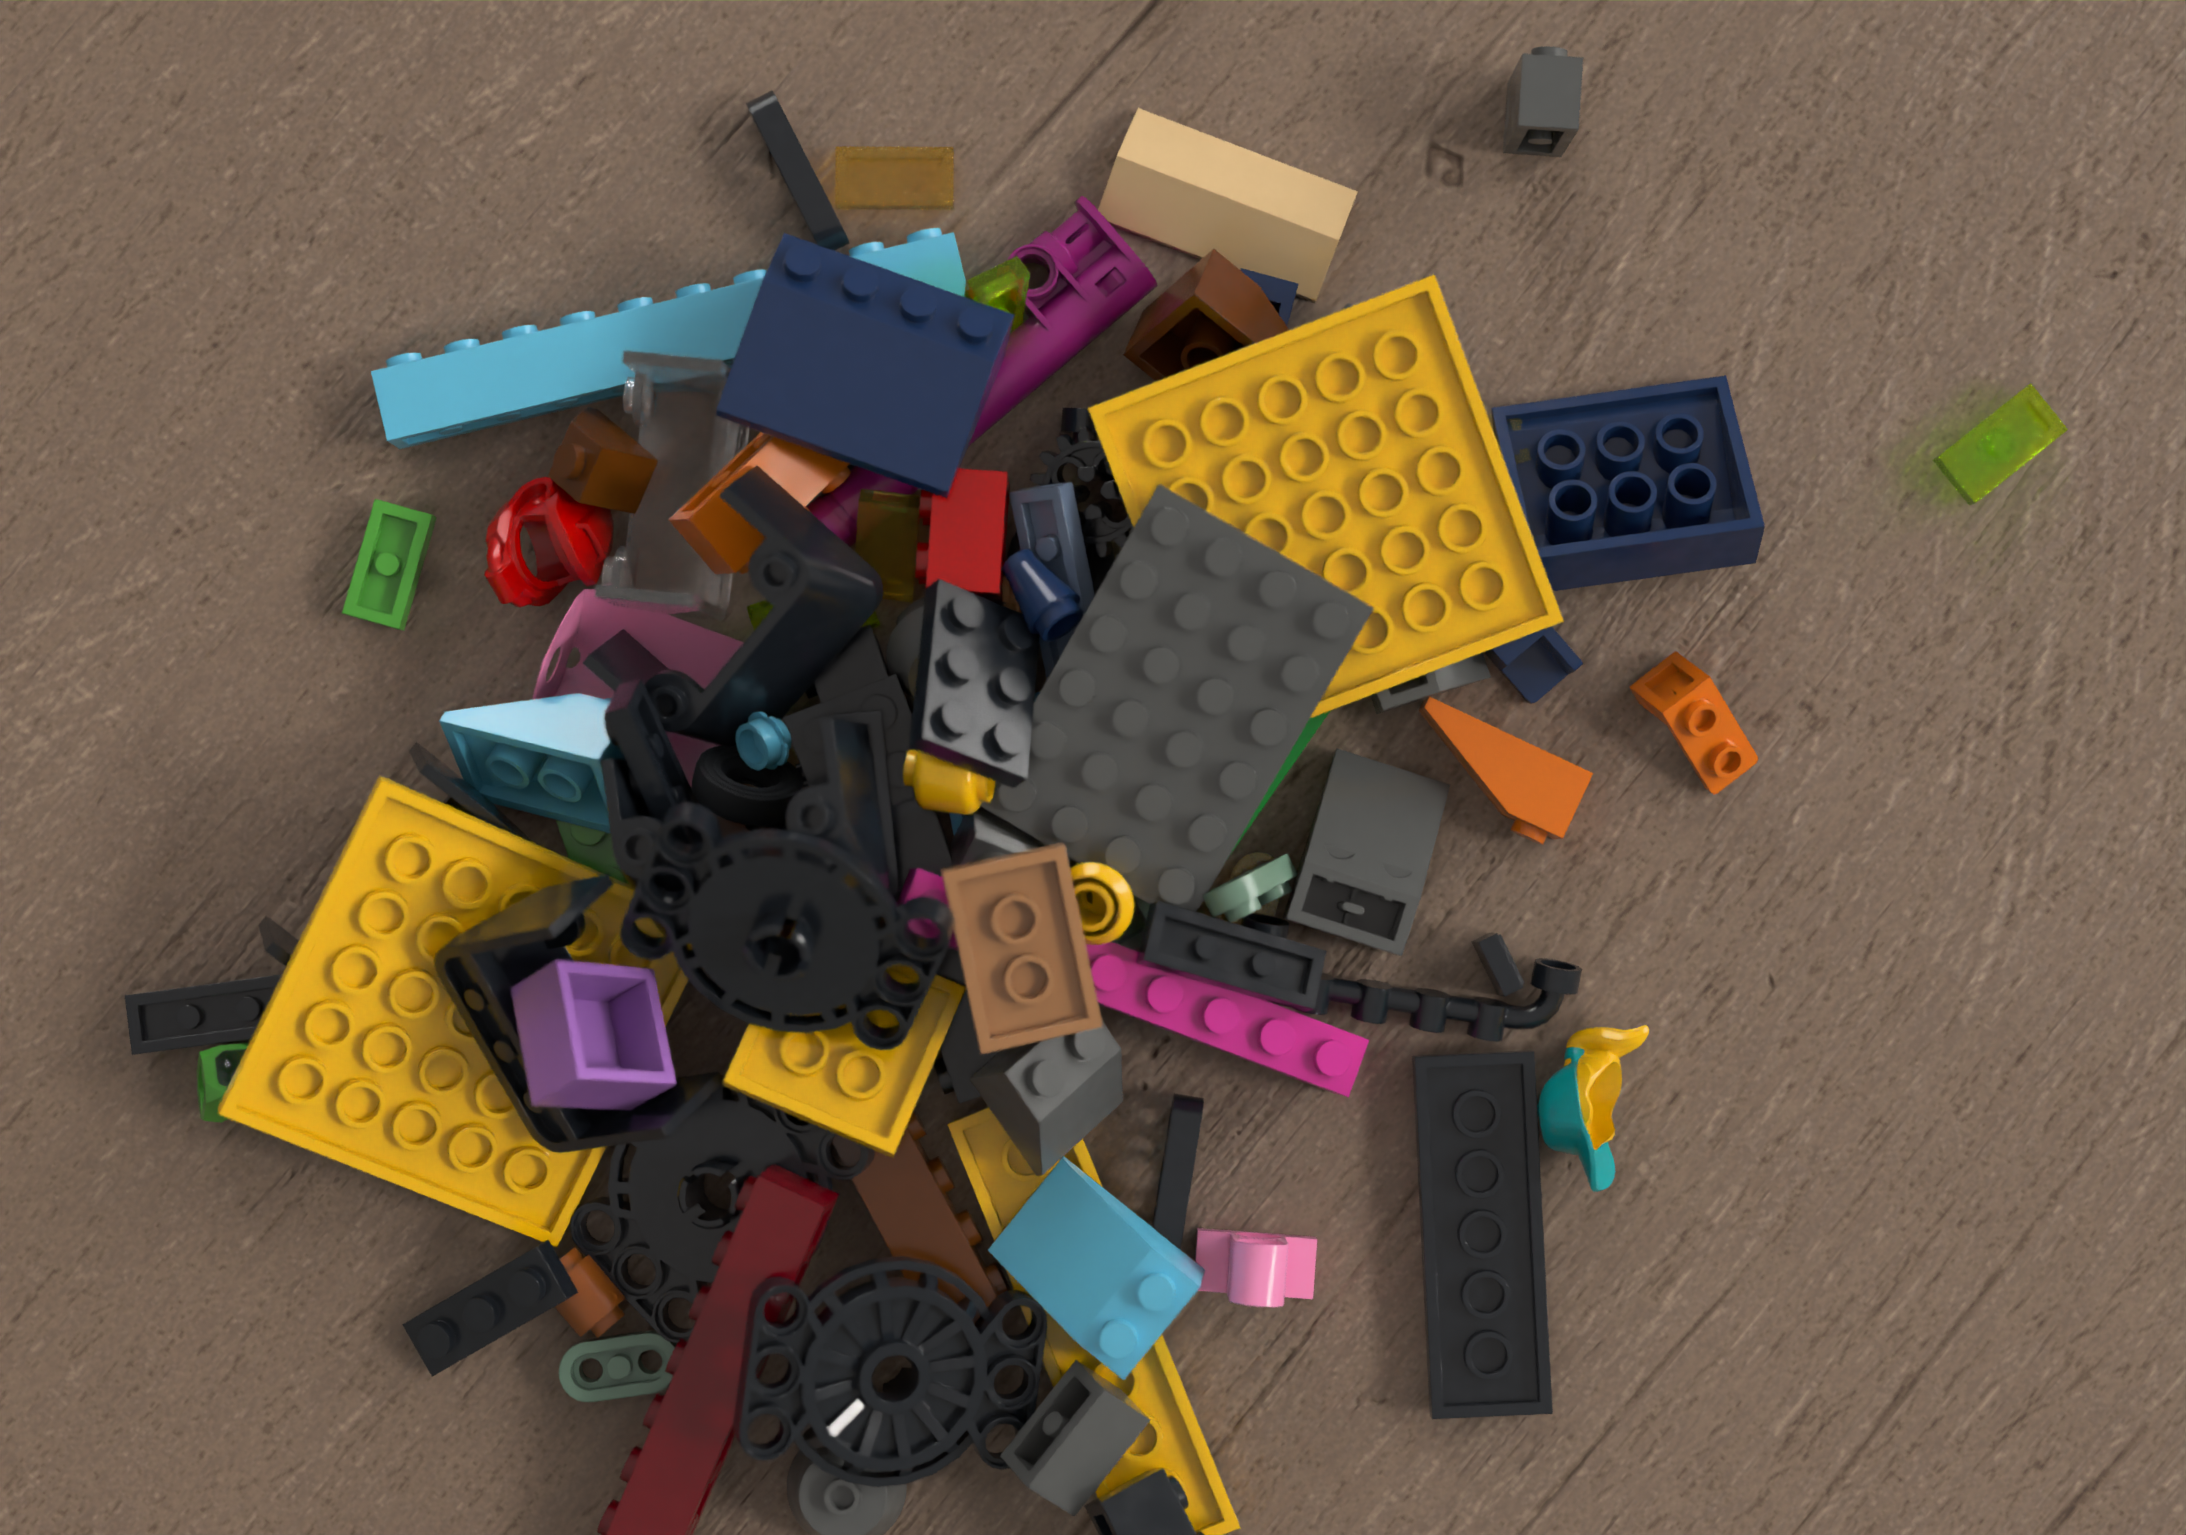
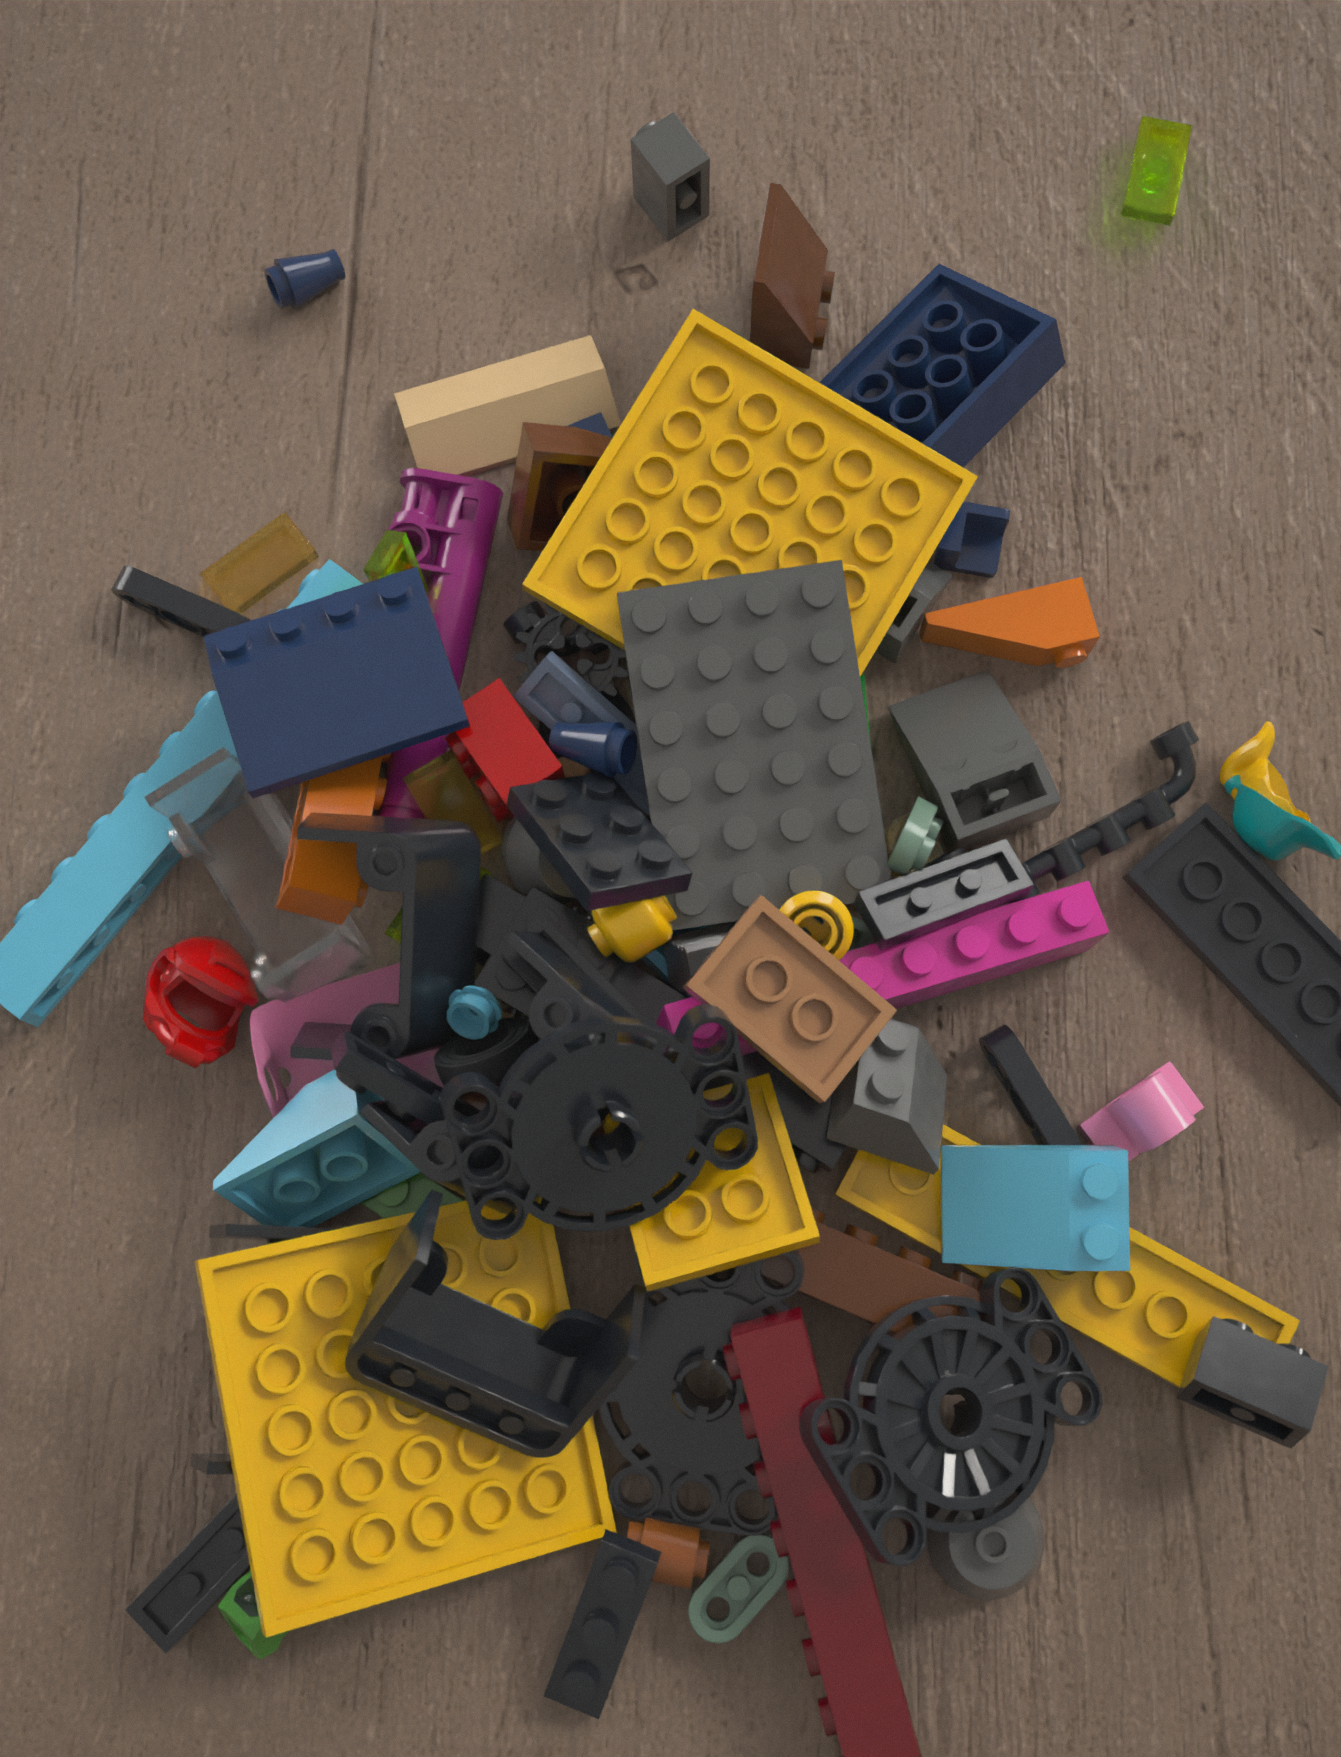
camera: 35 degrees left, 10 degrees down
(389, 564) = (91, 1114): bright green plate -> none
(592, 1036) = (517, 1330): medium lavender piece -> none
(602, 464) = (197, 908): reddish brown slope -> none
(1074, 1438) = (1128, 1349): dark grey brick -> none
(1498, 964) = (1128, 762): black tile -> none
(1560, 300) = (789, 284): none -> reddish brown slope
(1698, 720) = (1118, 487): orange bracket -> none

